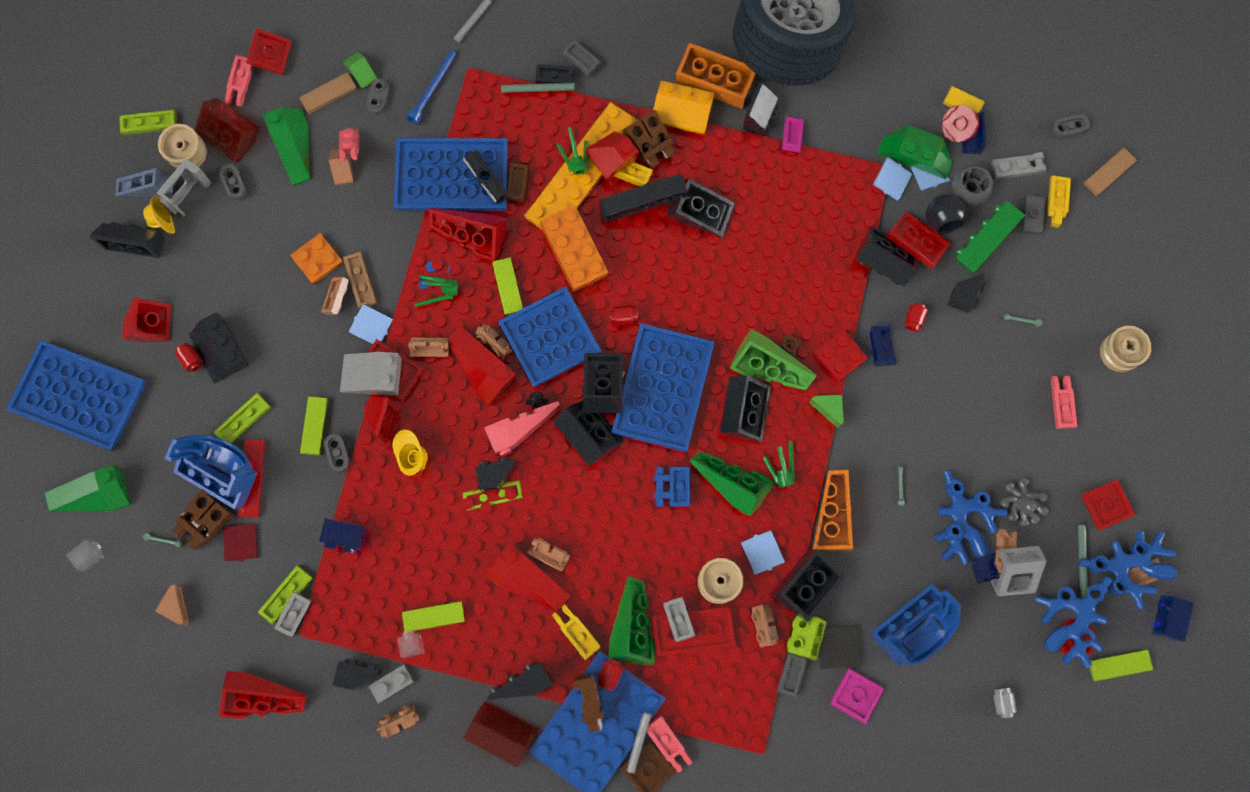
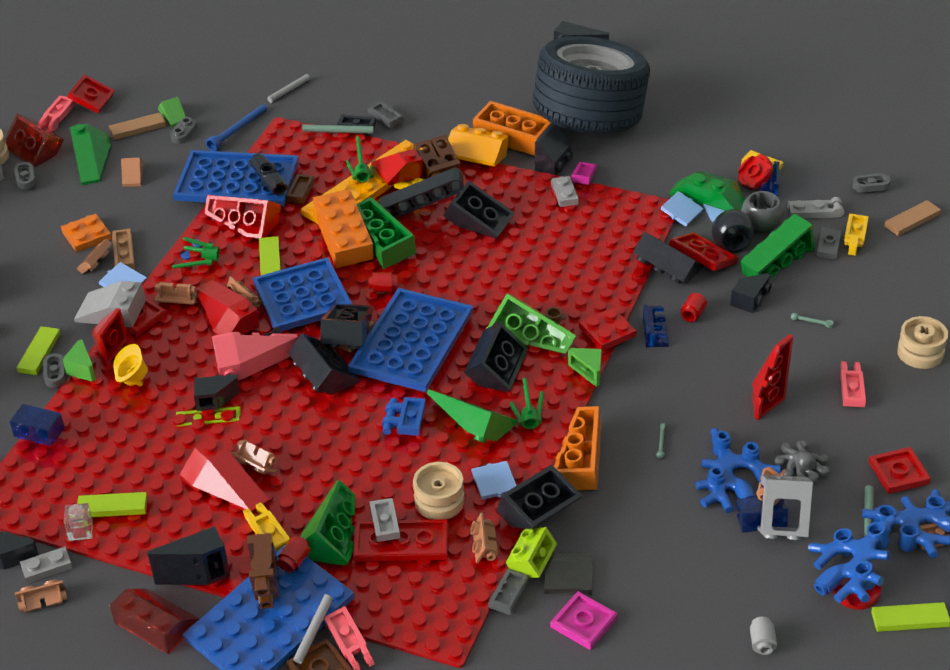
camera: 10 degrees right, 35 degrees down
(348, 144) = (143, 151): coral hinge -> none
(360, 448) = (78, 362): none -> bright green slope
(618, 255) = (389, 237): none -> green wedge
(778, 165) = (564, 191): none -> light grey plate
(927, 637) = (691, 534): blue piece -> none
(994, 420) = (772, 379): none -> red wedge

